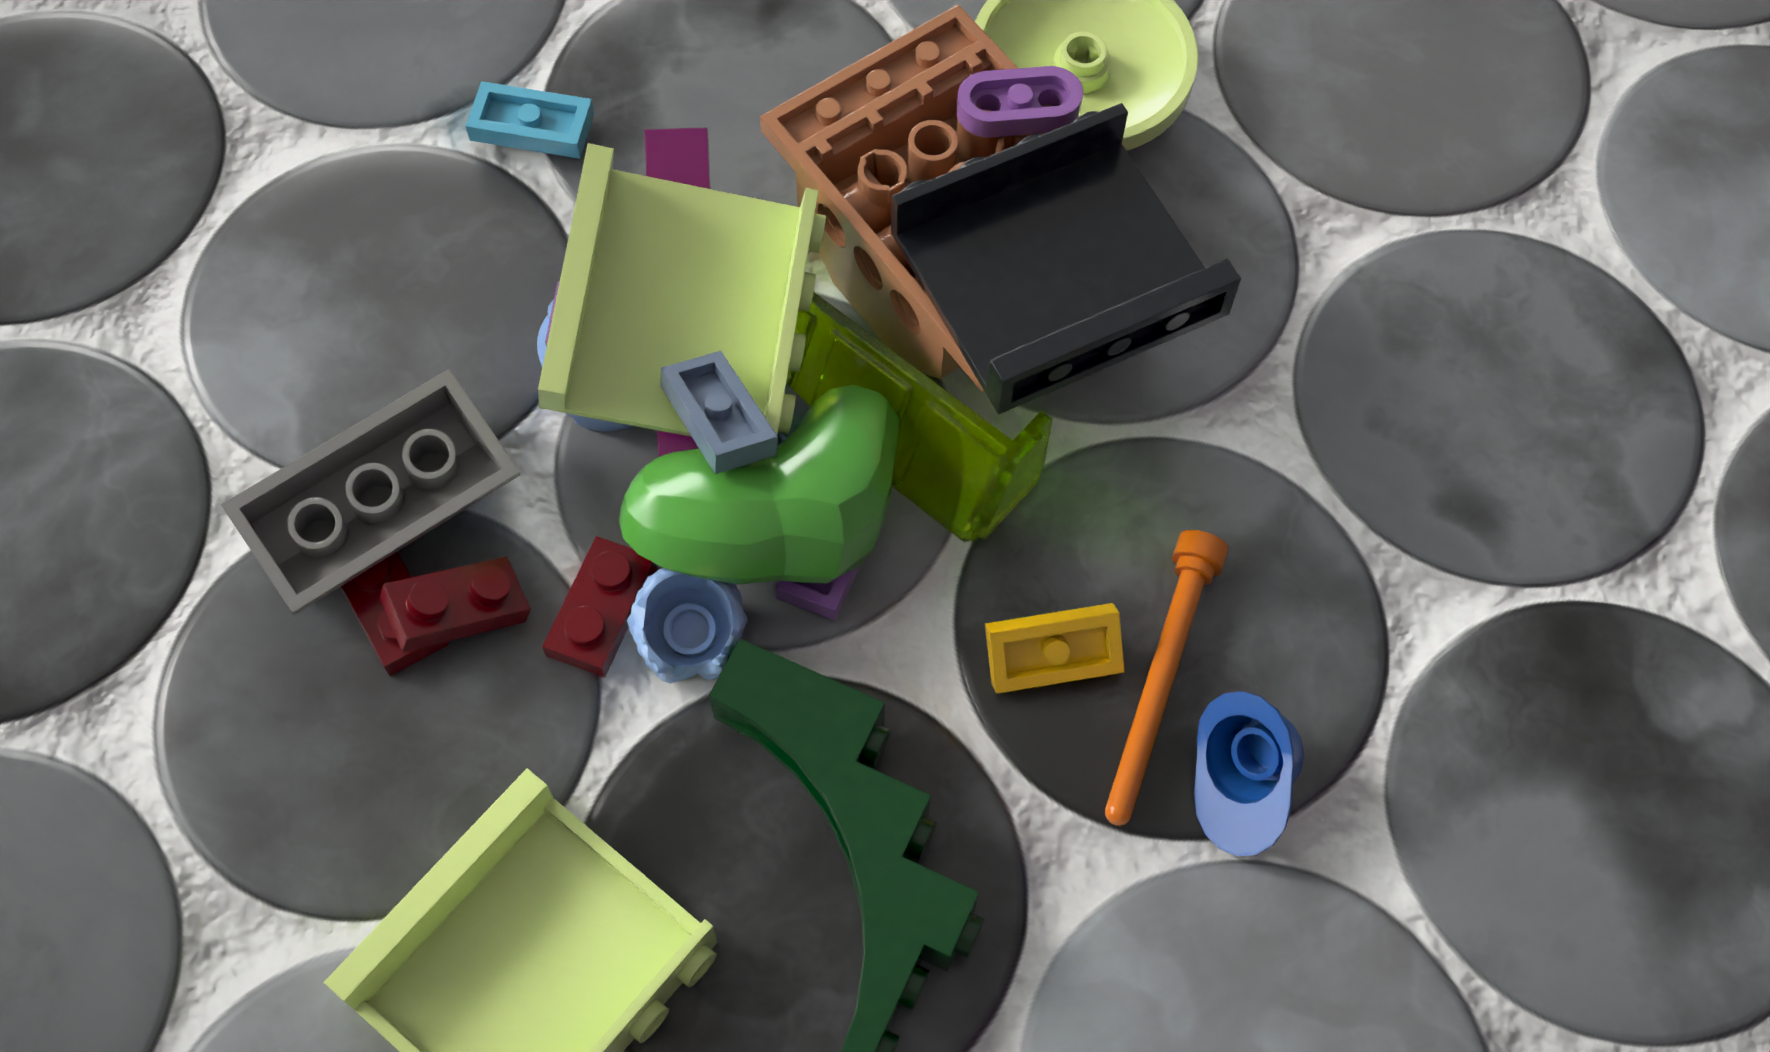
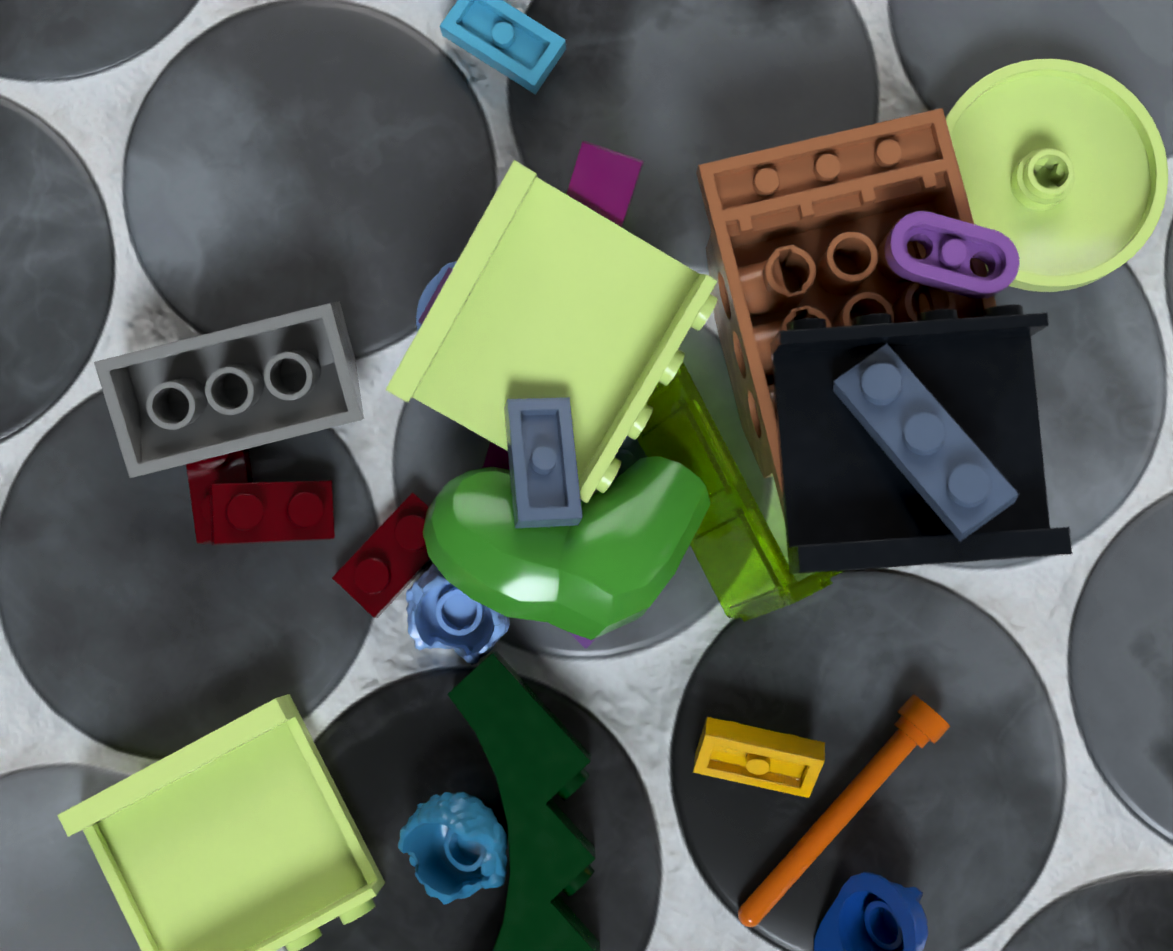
camera: 25 degrees right, 20 degrees up
(779, 850) = (455, 846): none -> dark azure hair
(1066, 242) = (924, 442): none -> sand blue plate

